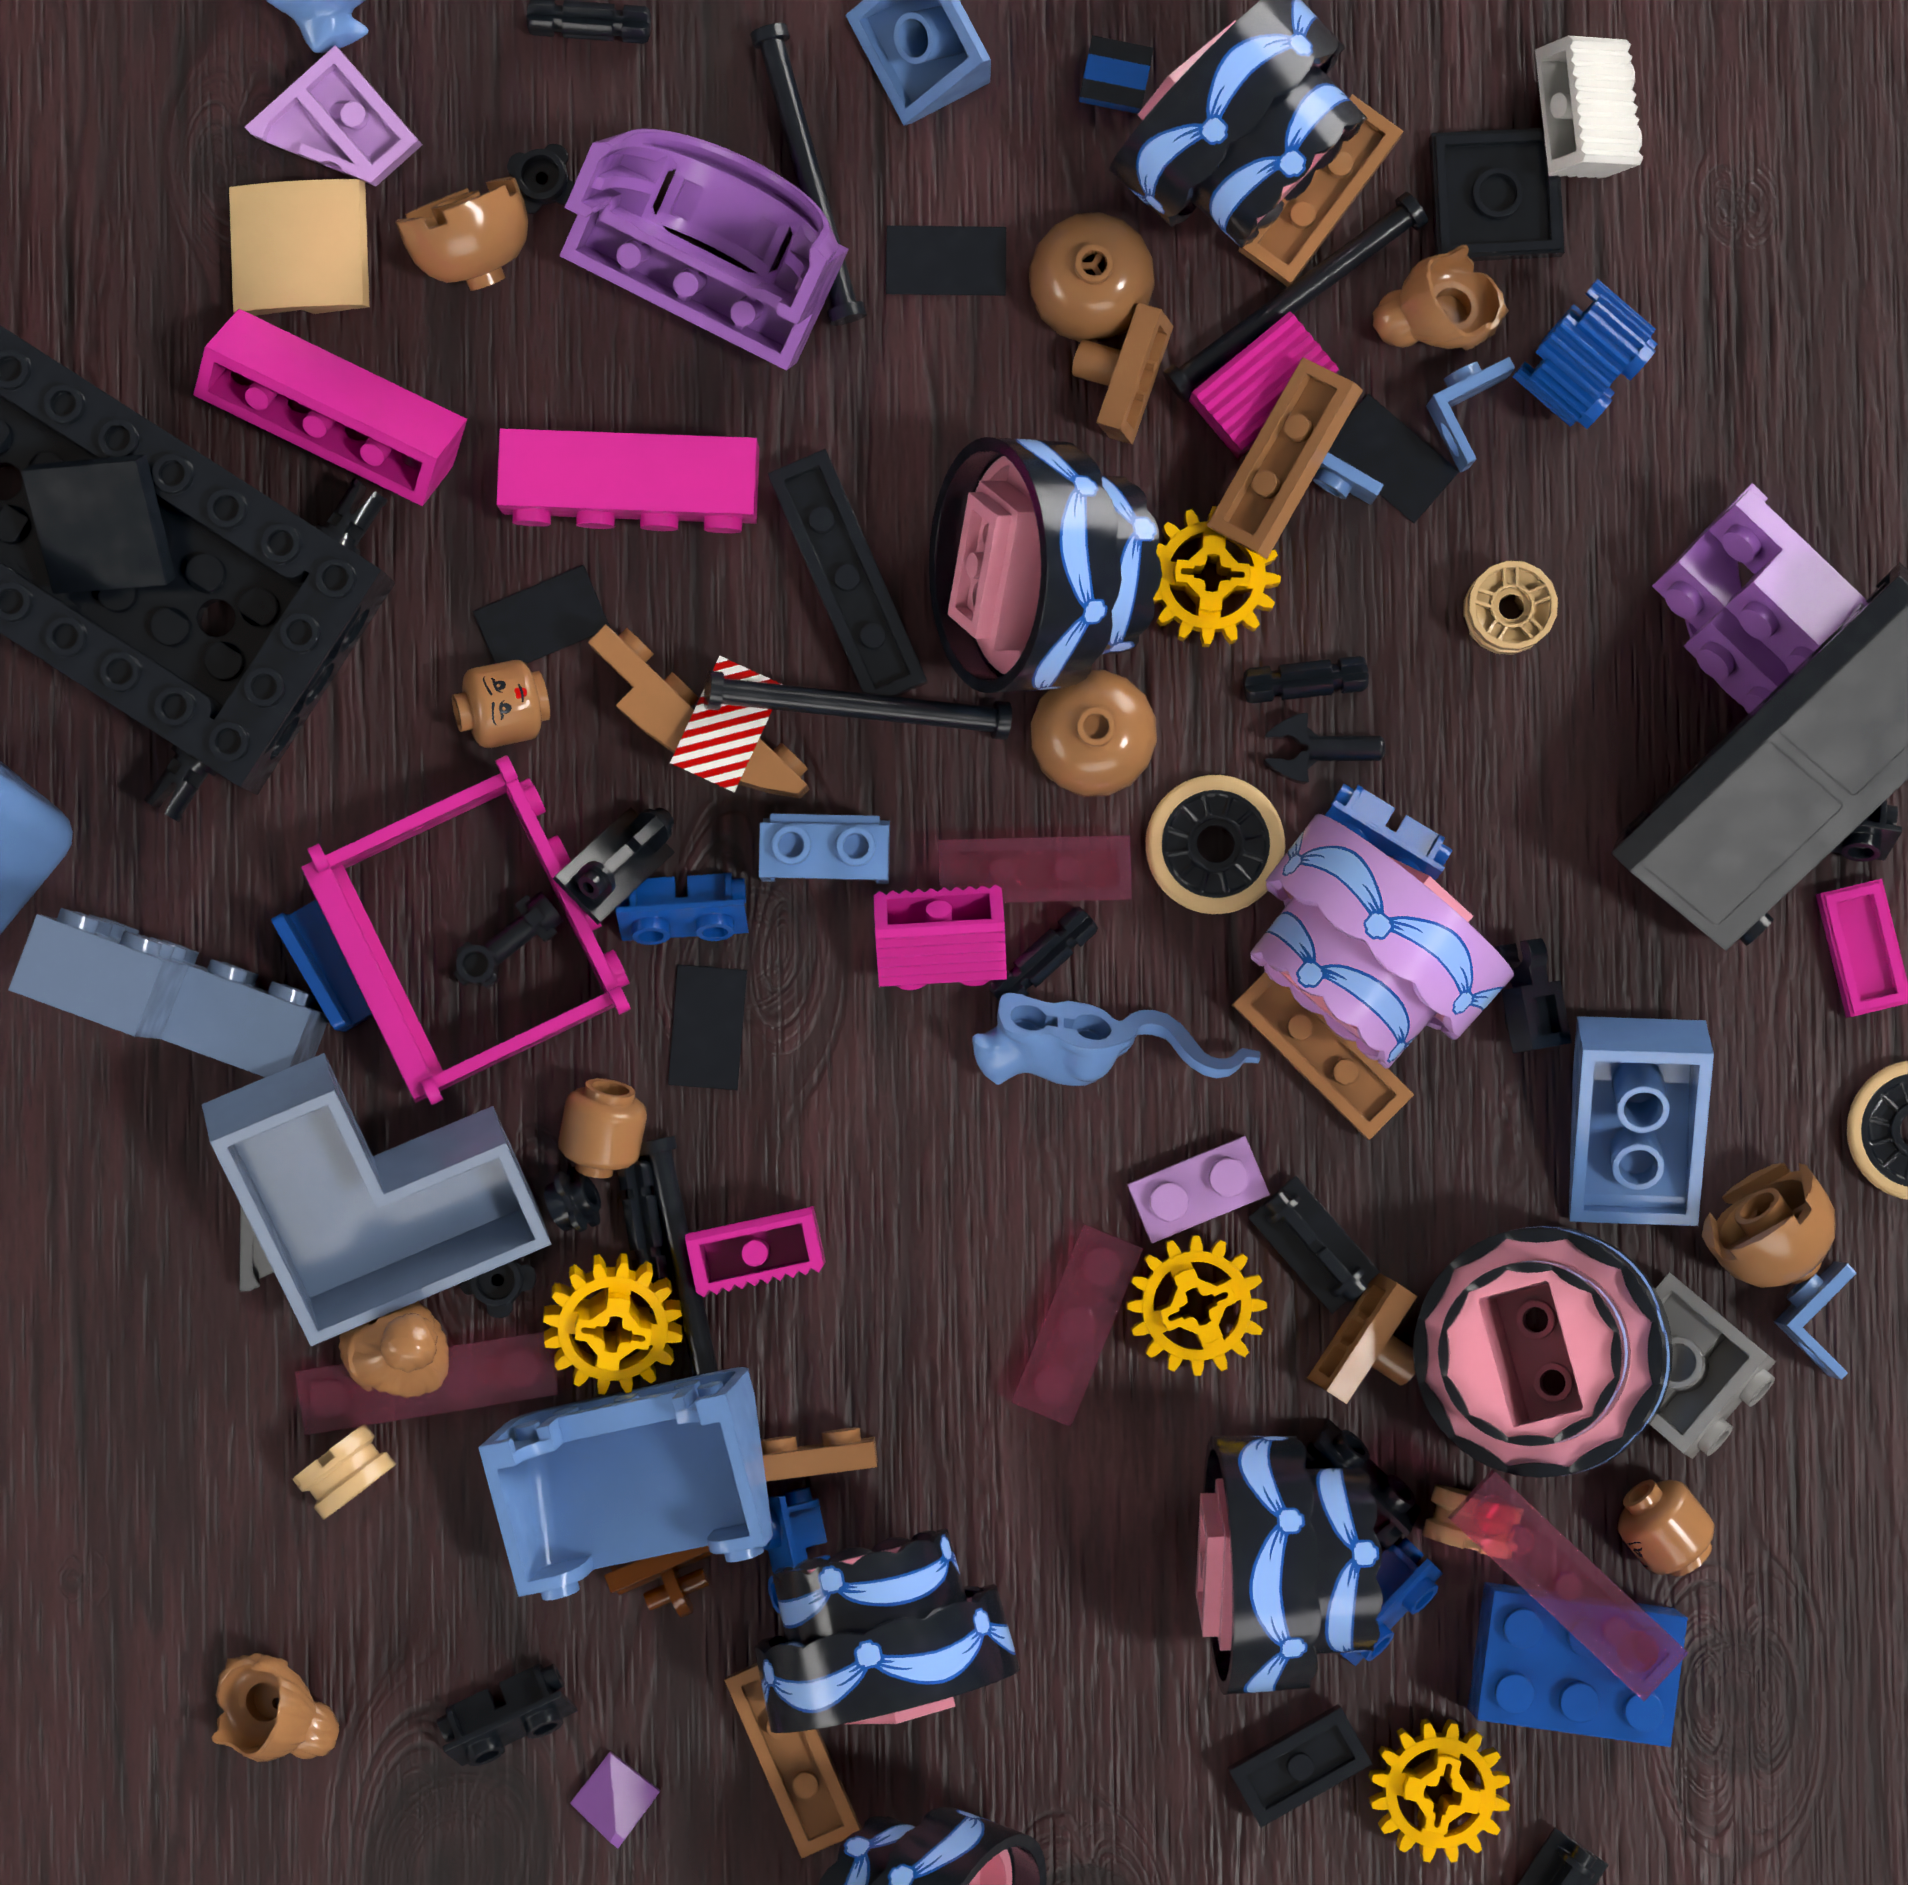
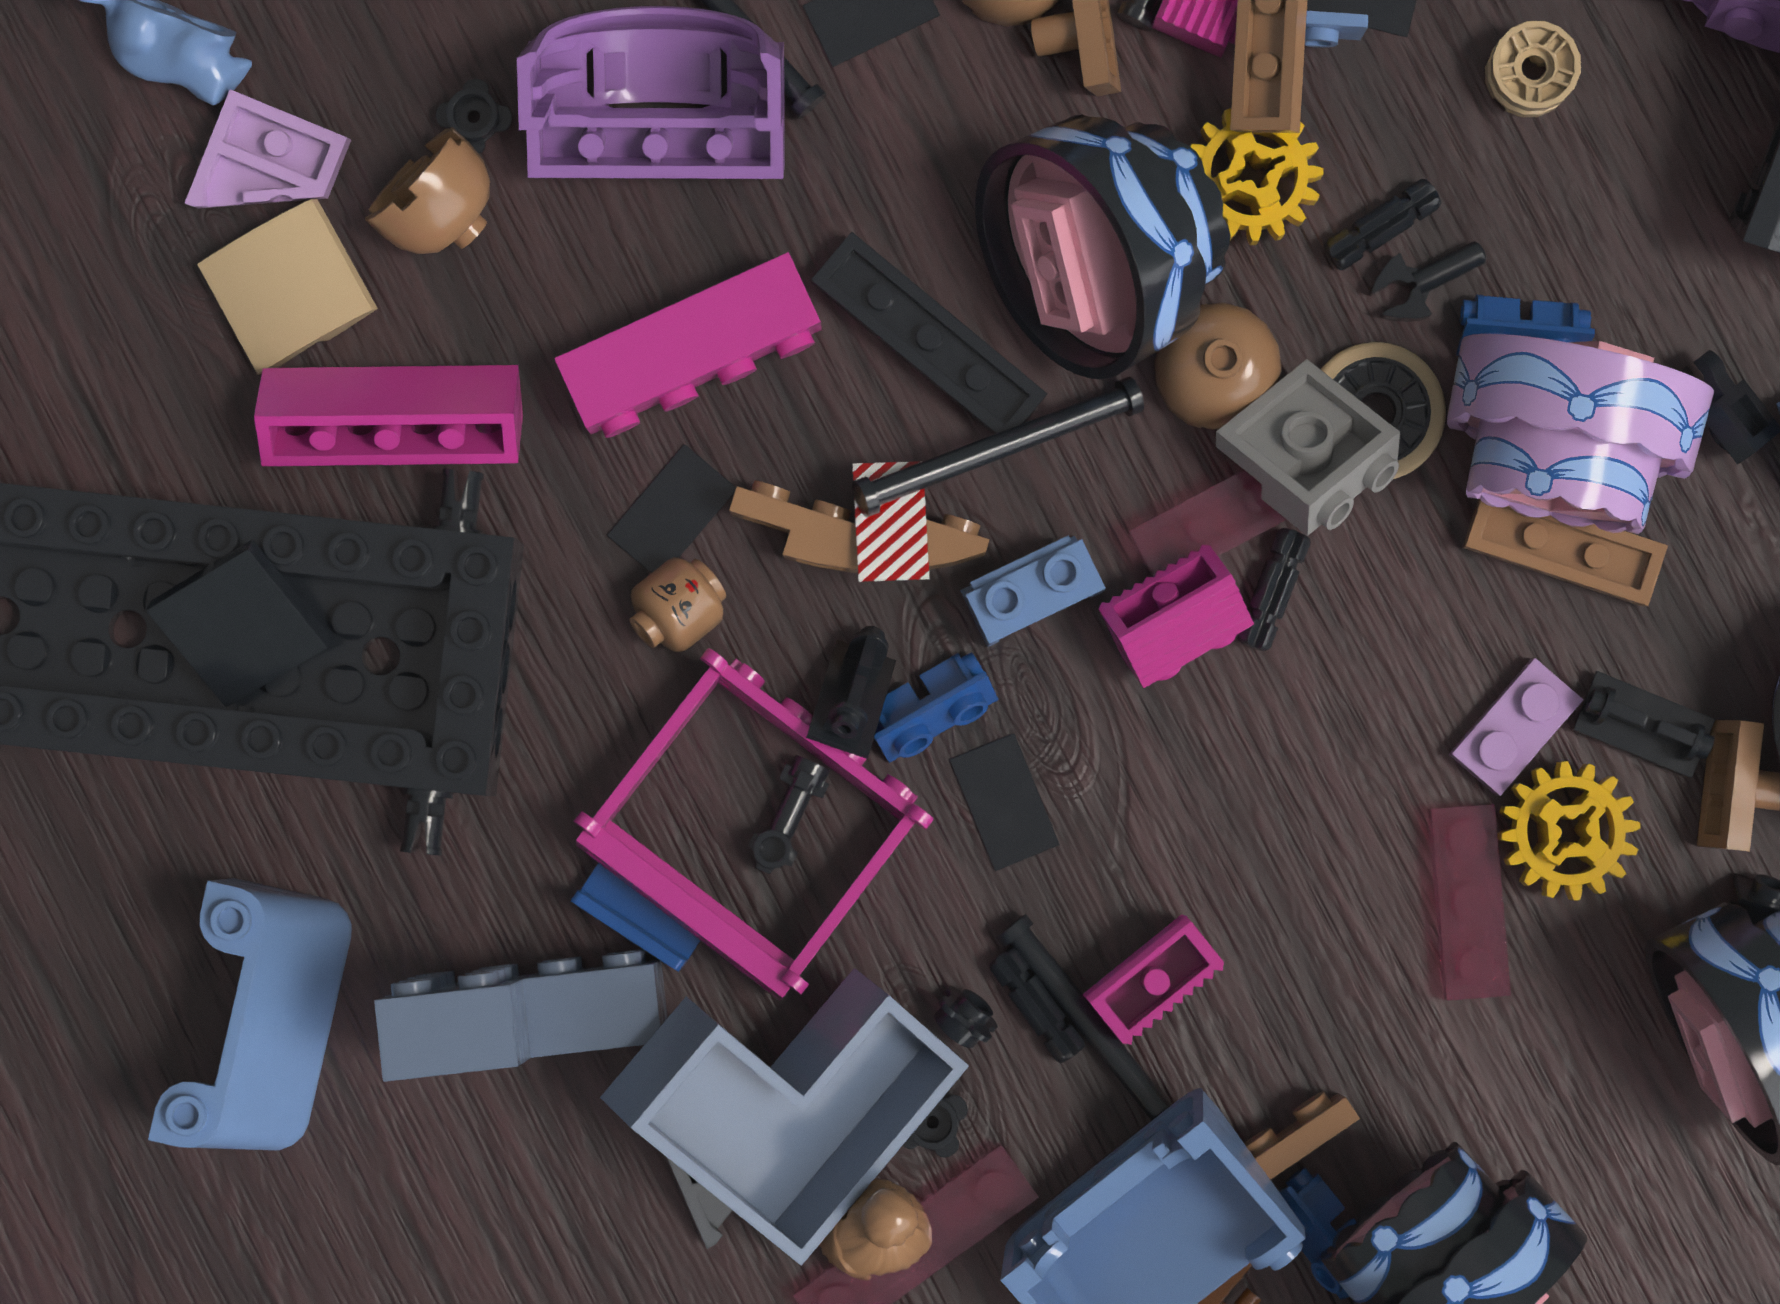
camera: 25 degrees left, 0 degrees up
(589, 1316) = (1083, 1117): yellow gear -> none
(602, 1127) = (959, 938): medium nougat head -> none
(1081, 1042) = (1349, 647): medium blue animal -> none
(1135, 846) = (1311, 448): none -> light grey plate

